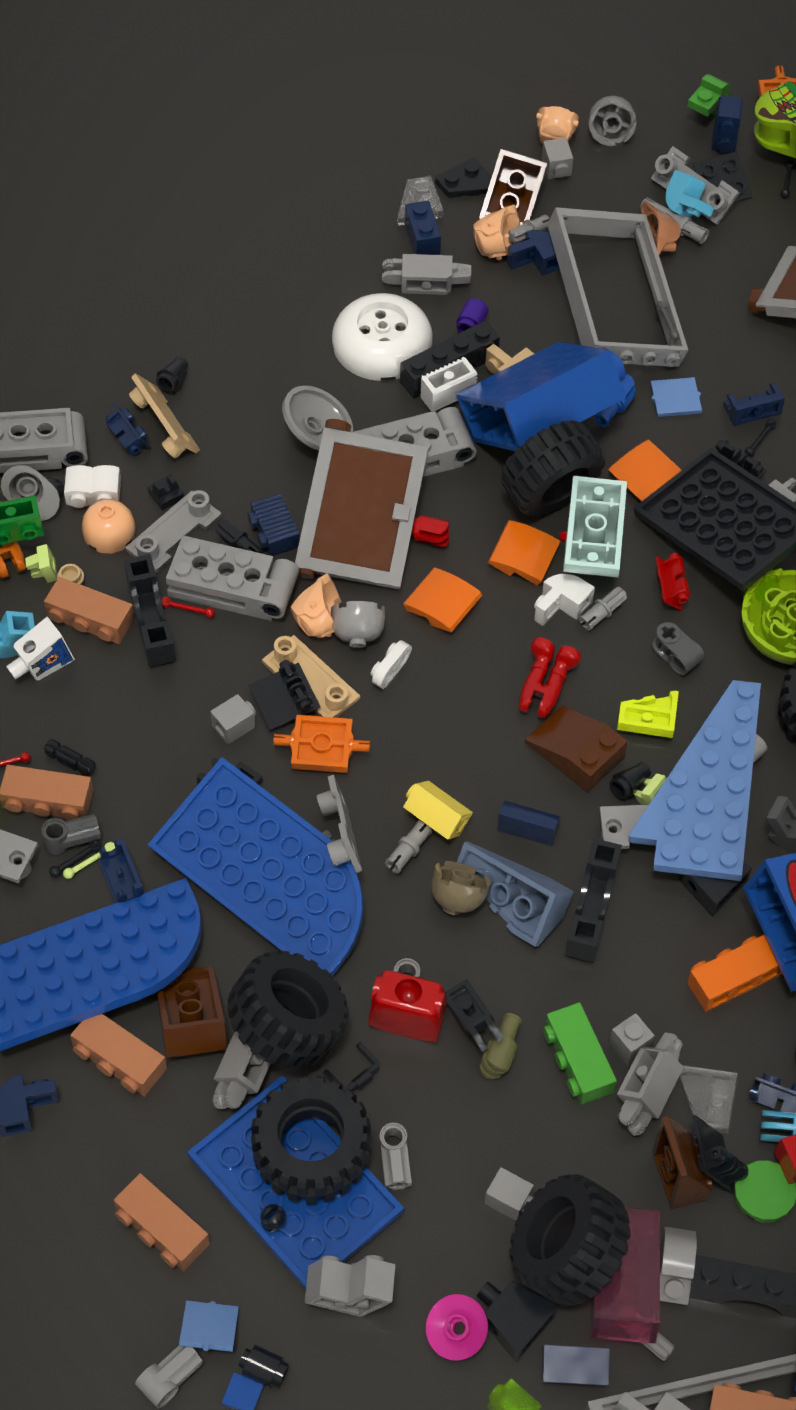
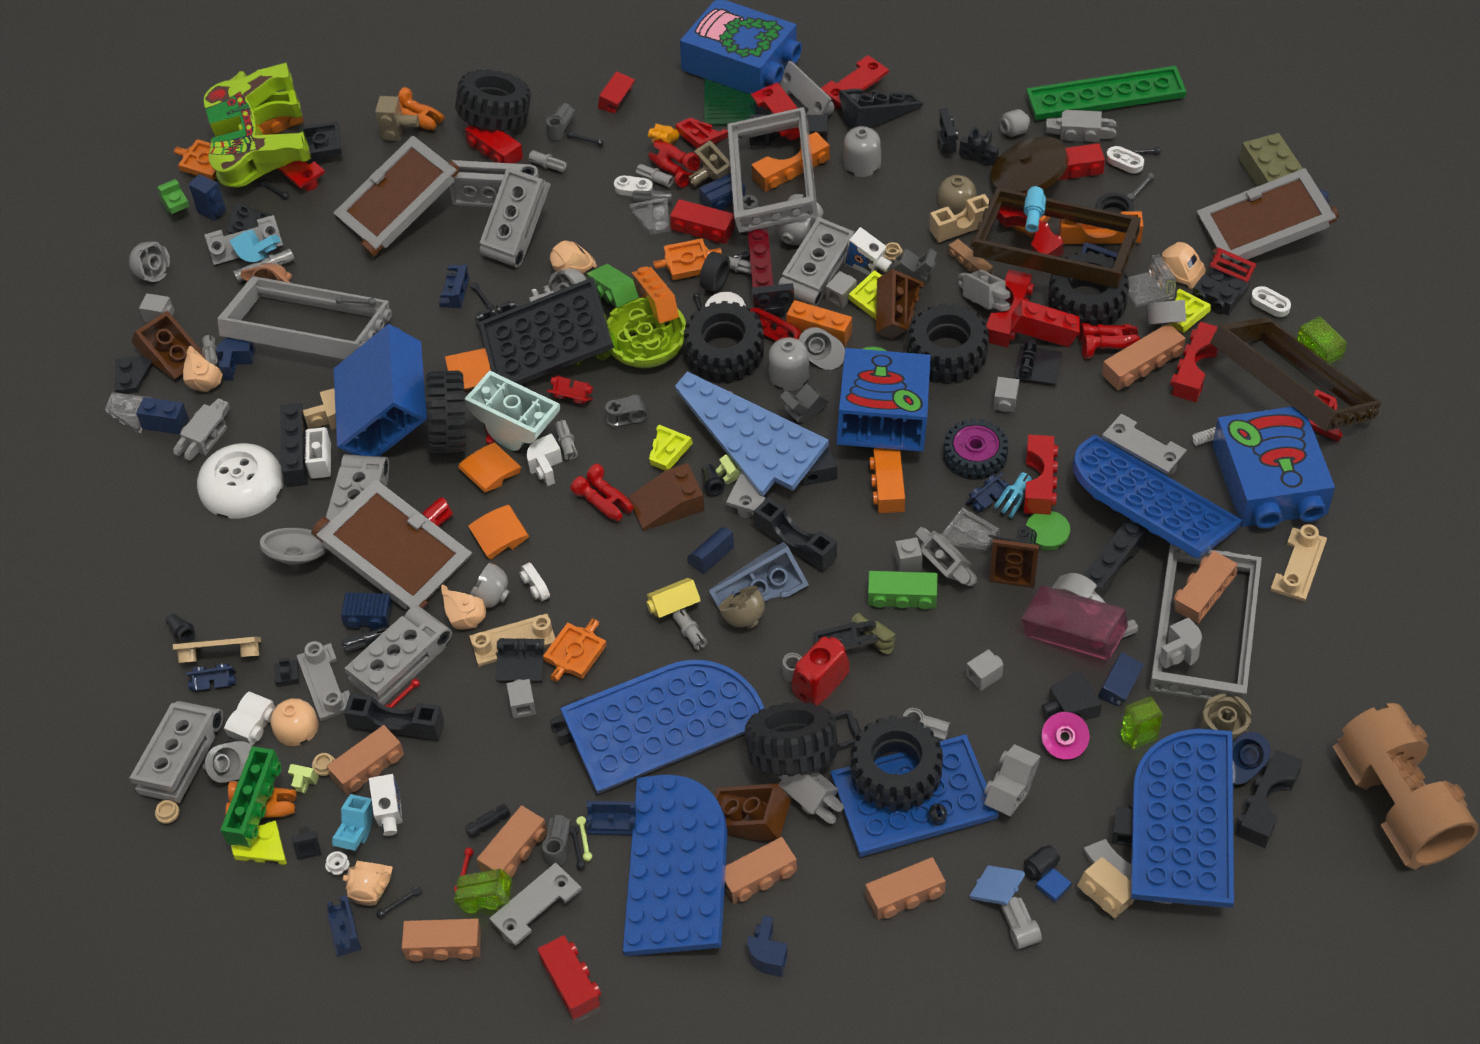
camera: 60 degrees left, 5 degrees down
(344, 848) = (680, 652): light grey brick -> none
(472, 313) = (264, 417): dark purple brick -> none
(556, 123) = (127, 296): light nougat helmet -> none
(570, 1240) = (1017, 639): black tyre -> none
(676, 397) = (418, 326): medium blue piece -> none

